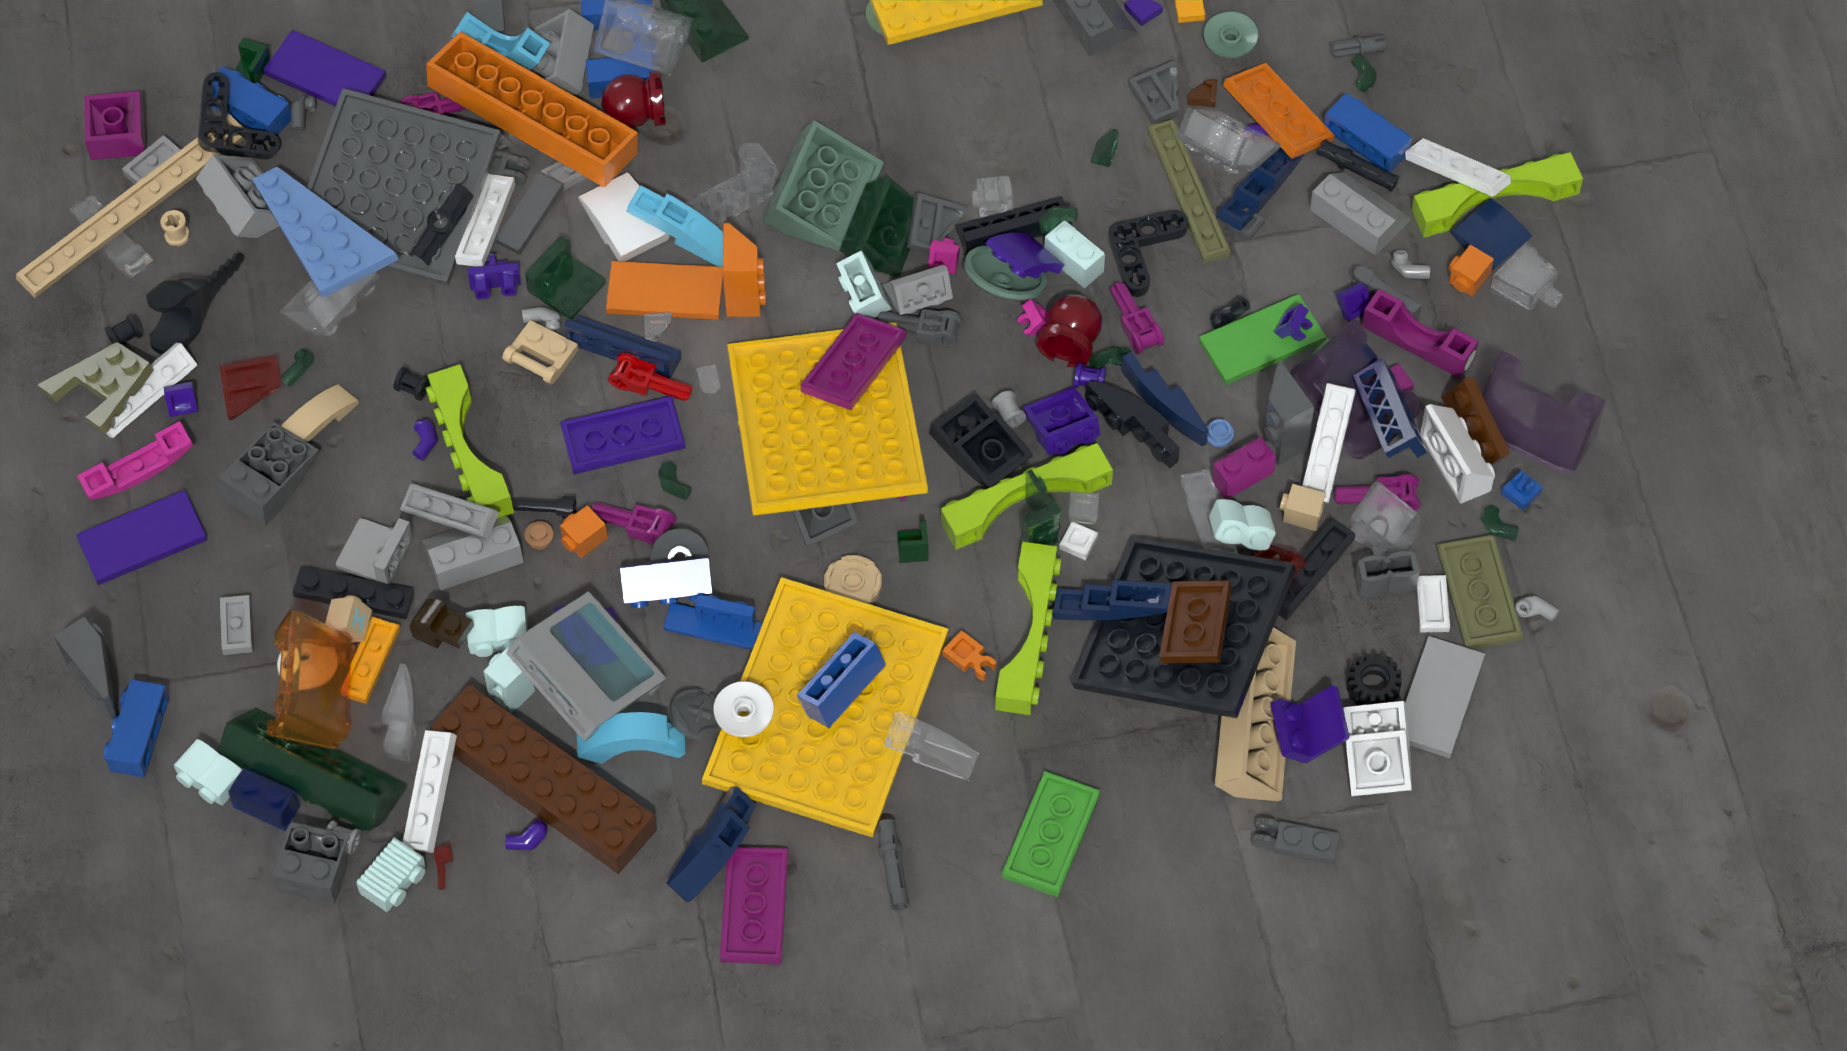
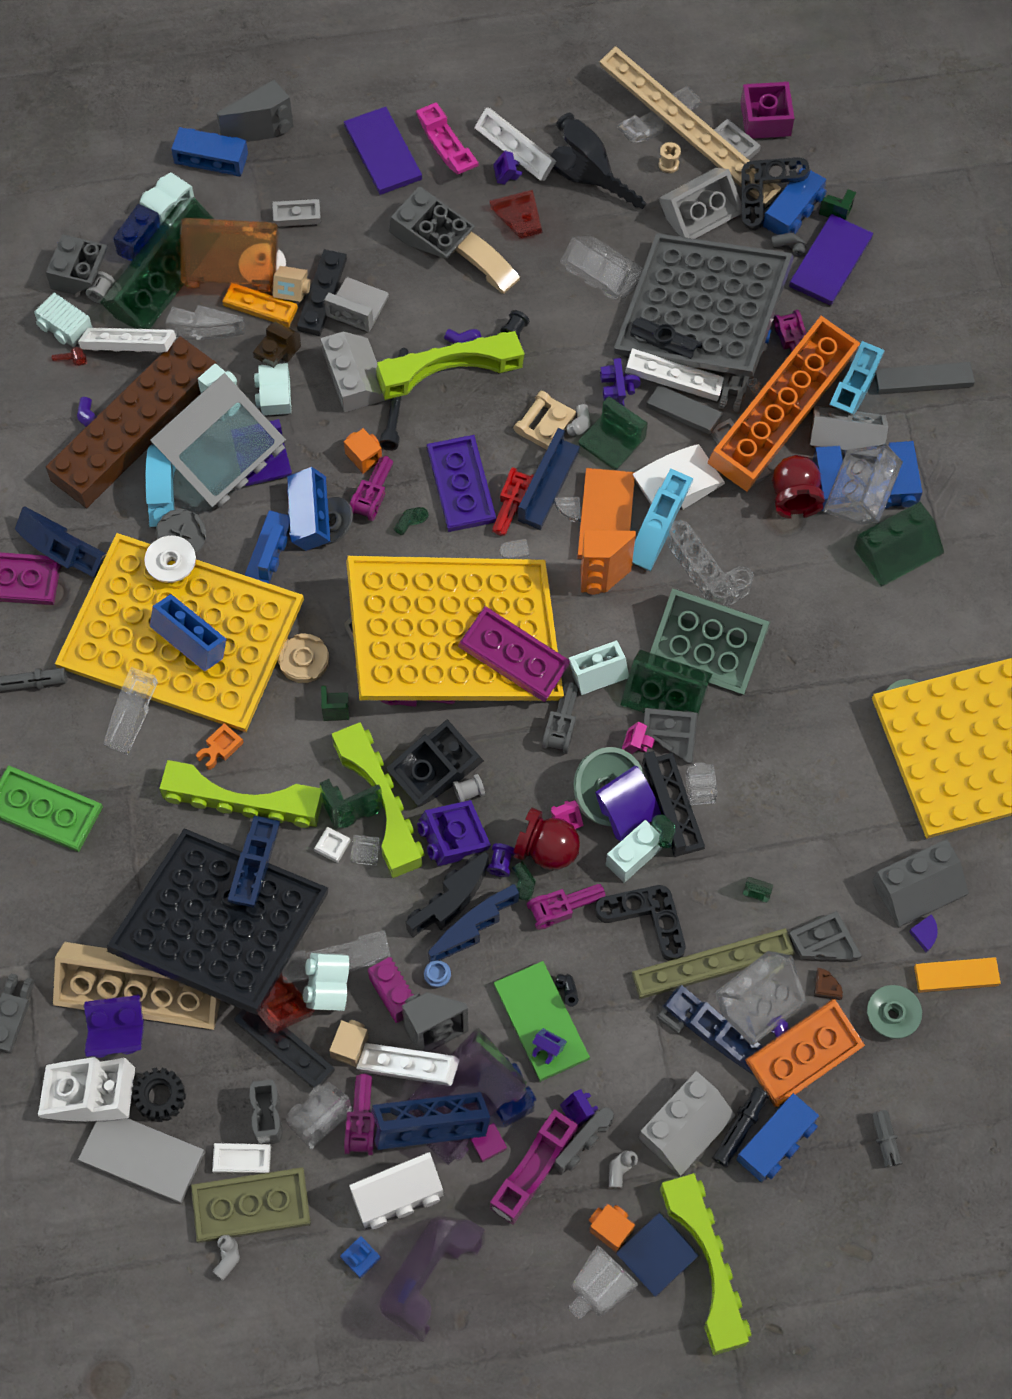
camera: 90 degrees right, 5 degrees up
(109, 374) = (522, 118): wing -> none
(303, 362) = (534, 248): clear green arm -> none
(324, 240) = (646, 247): medium blue wing -> none
(449, 511) = (380, 347): light grey tile -> none
(539, 535) = (365, 419): medium nougat plate -> none
(919, 290) = (594, 711): light grey bracket -> none
(1196, 622) = (208, 921): reddish brown plate -> none
(1367, 73) = (852, 1146): clear green arm -> none
(1458, 167) = (730, 1222): white tile -> none
(1470, 405) = (429, 1213): reddish brown wing -> none
(1495, 525) = (321, 1226): clear green arm -> none

